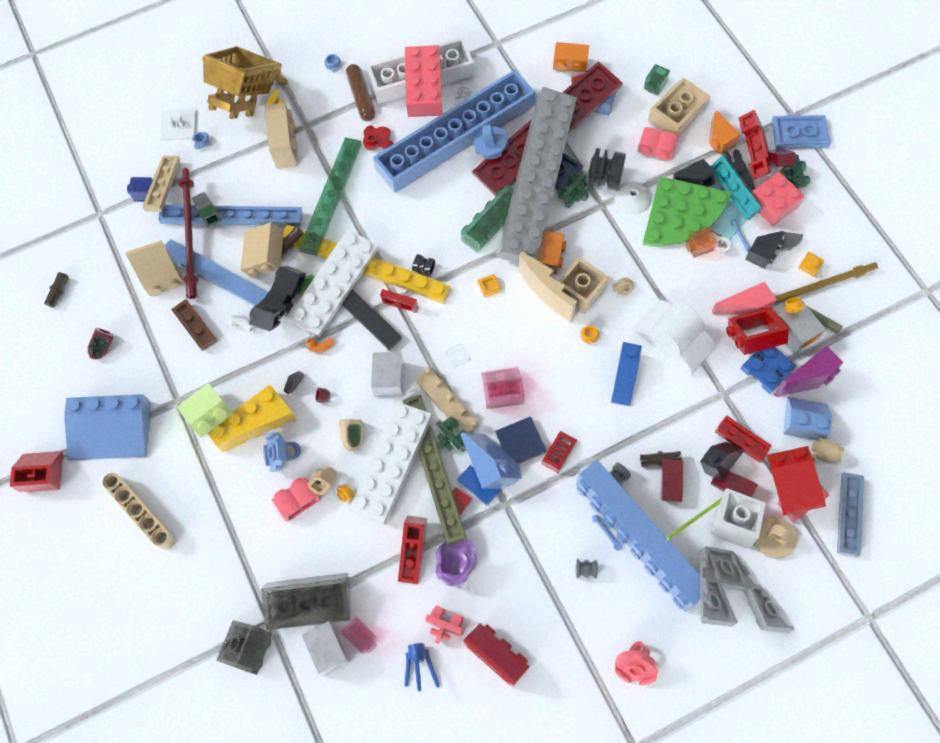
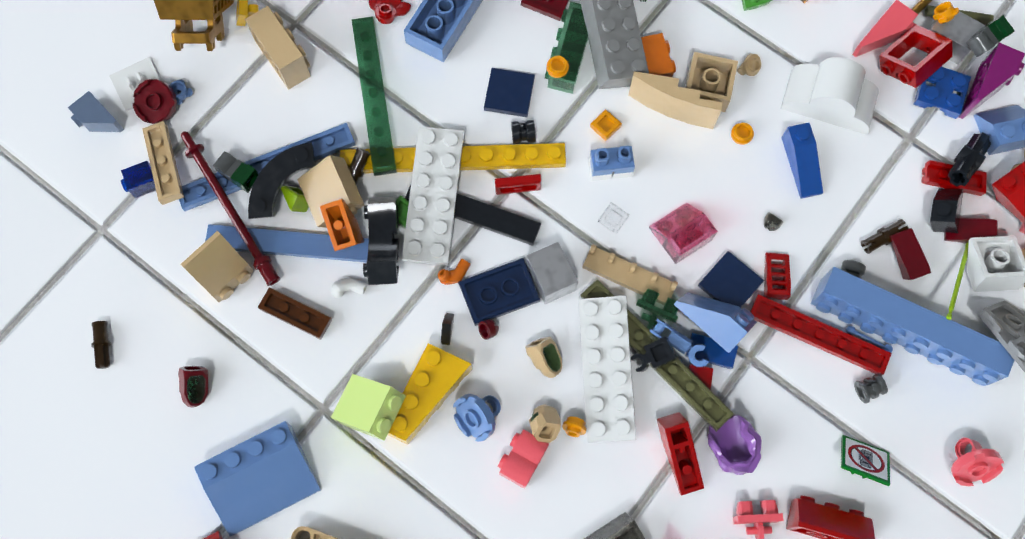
camera: 30 degrees left, 5 degrees up
(135, 133) = (93, 115): none -> sand blue slope
(180, 140) = (154, 101): none -> dark red tile
(227, 222) = (274, 175): none -> black brick
(236, 244) = (295, 198): none -> lime slope
(254, 275) = (341, 225): none -> orange slope
(344, 372) = (499, 291): none -> dark blue tile
(430, 233) = (509, 92): none -> dark blue tile
(431, 466) = (657, 353): none -> black plate
(454, 467) = (680, 343): none -> medium blue piece
(470, 226) = (557, 66): none -> light orange plate
(475, 312) = (611, 162): none -> medium blue hips
(550, 620) = (865, 460): none -> piece
(568, 511) = (820, 335): none -> red plate
(577, 409) = (772, 222): none -> clear smoke hinge
(759, 427) = (969, 159): none -> black piece
(822, 337) = (990, 35): none -> leg

